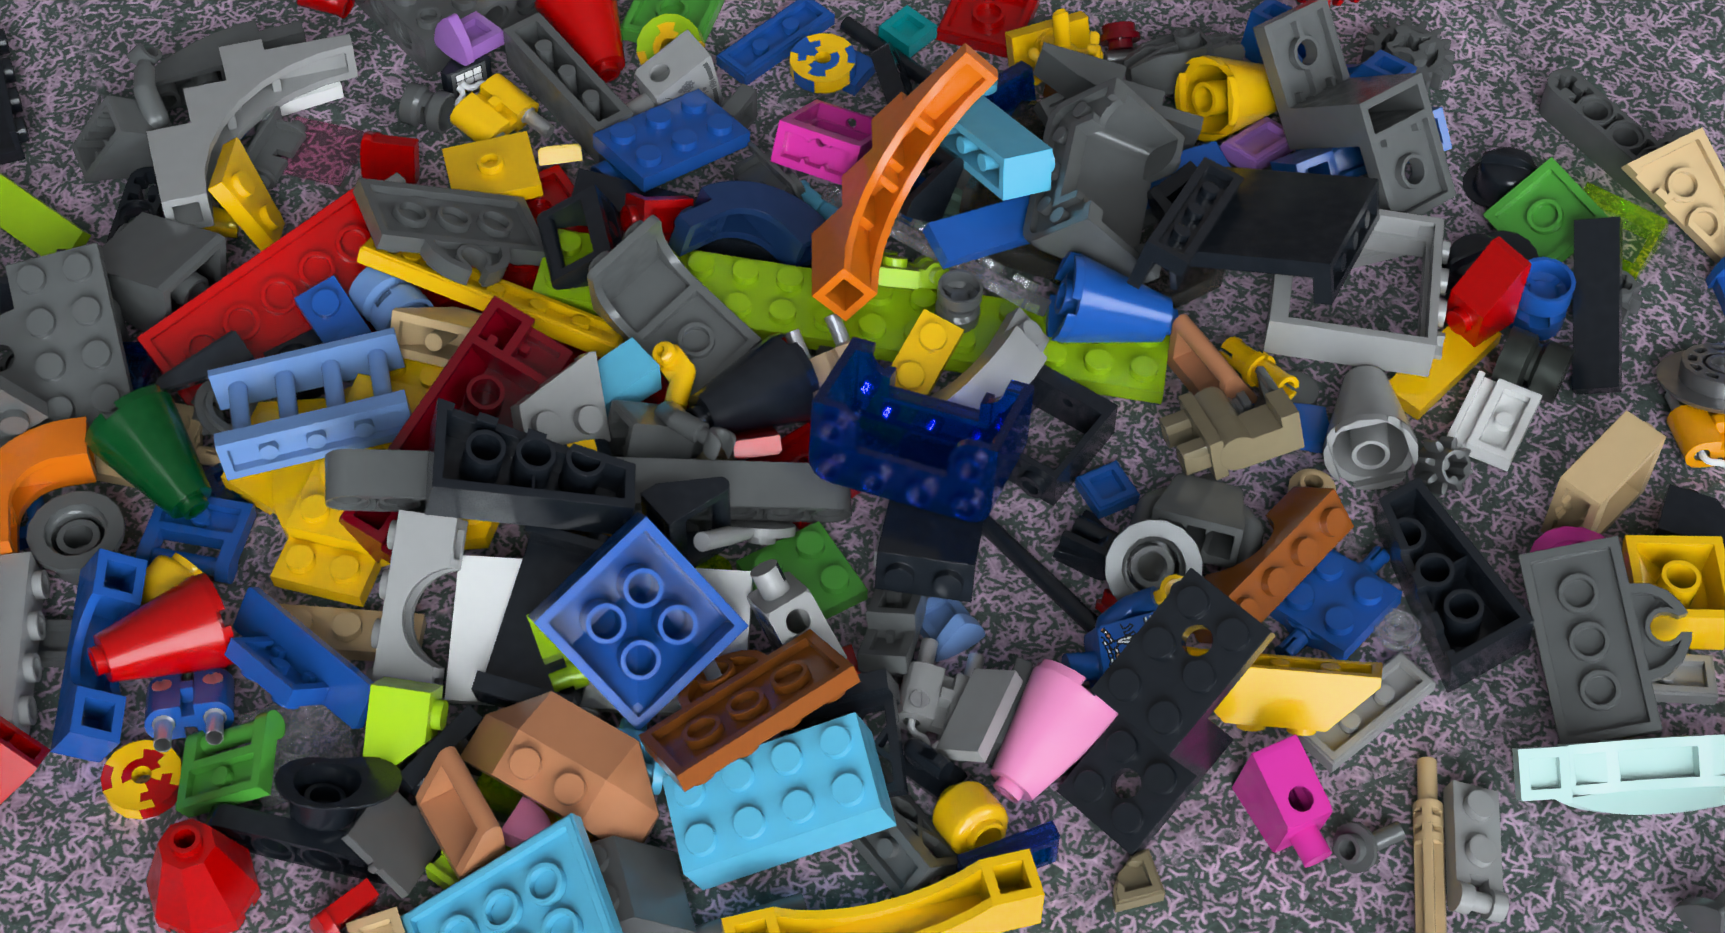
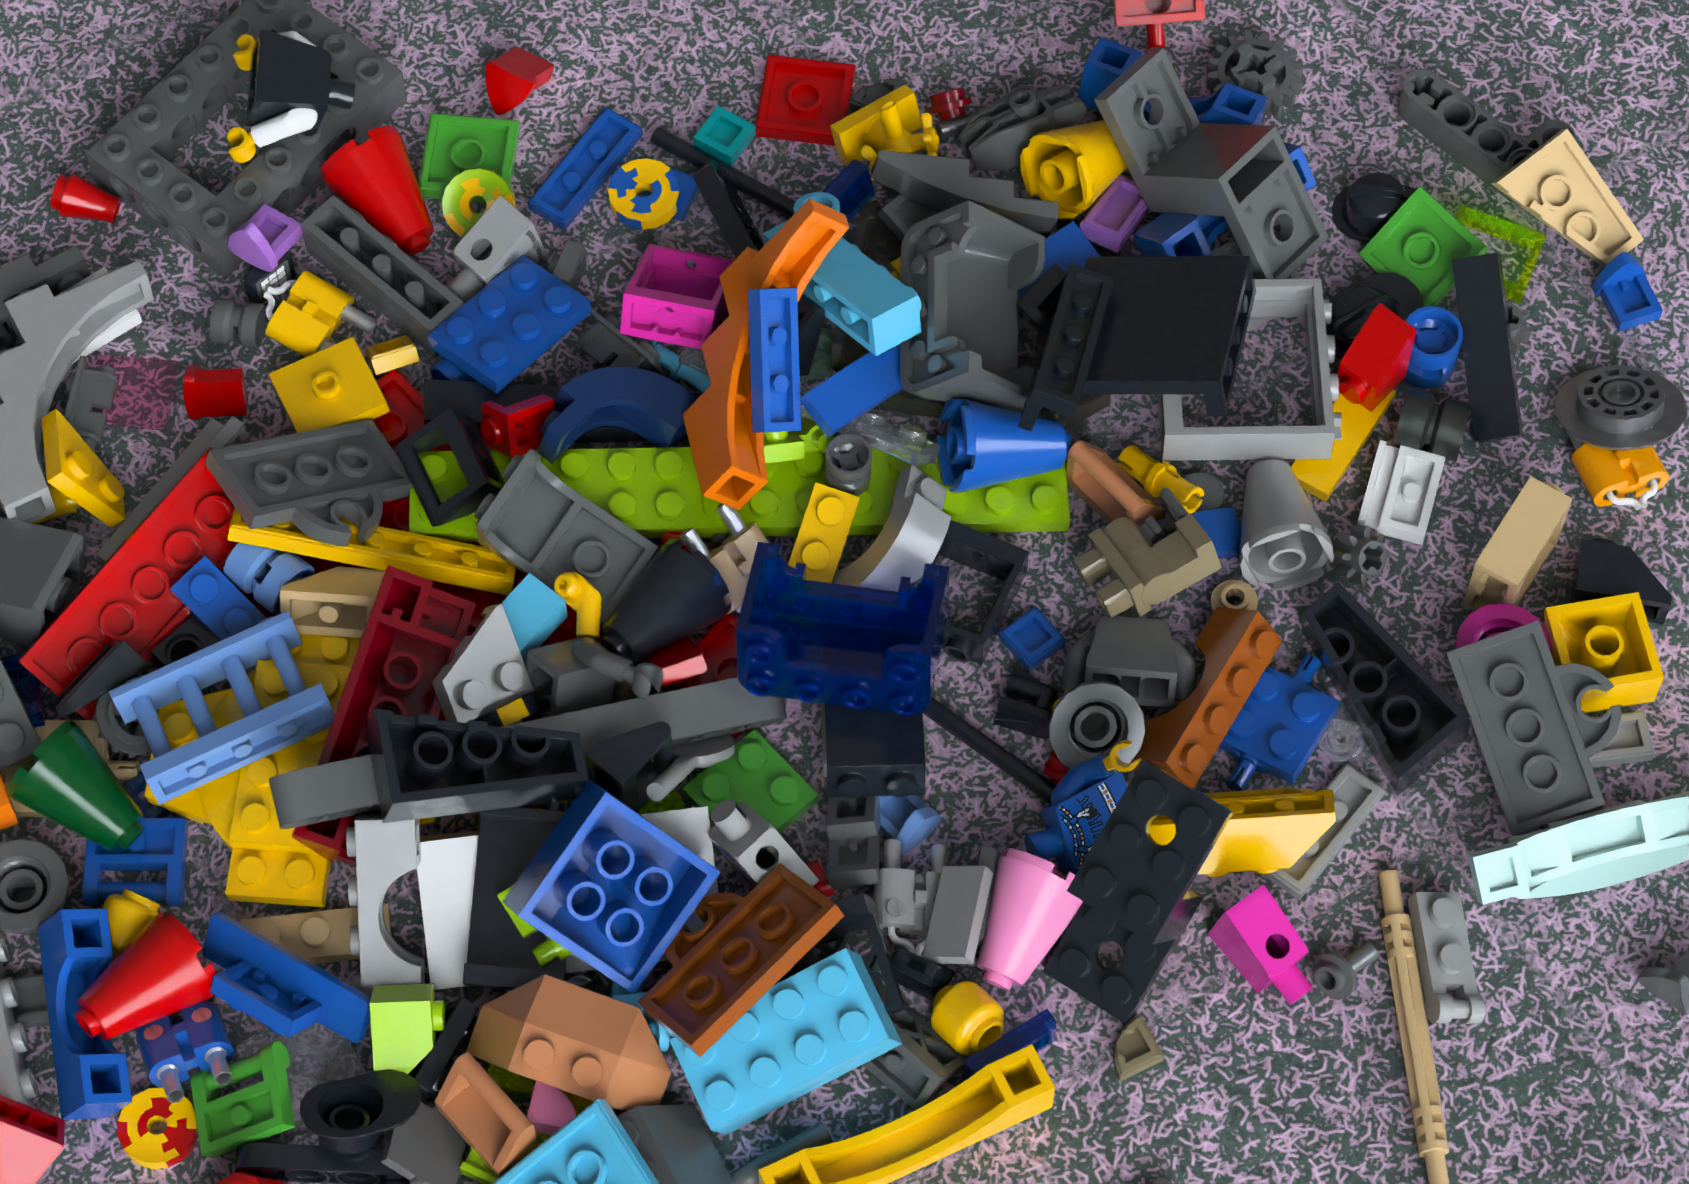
camera: 10 degrees left, 10 degrees up
(905, 187) = (774, 360): none -> blue plate

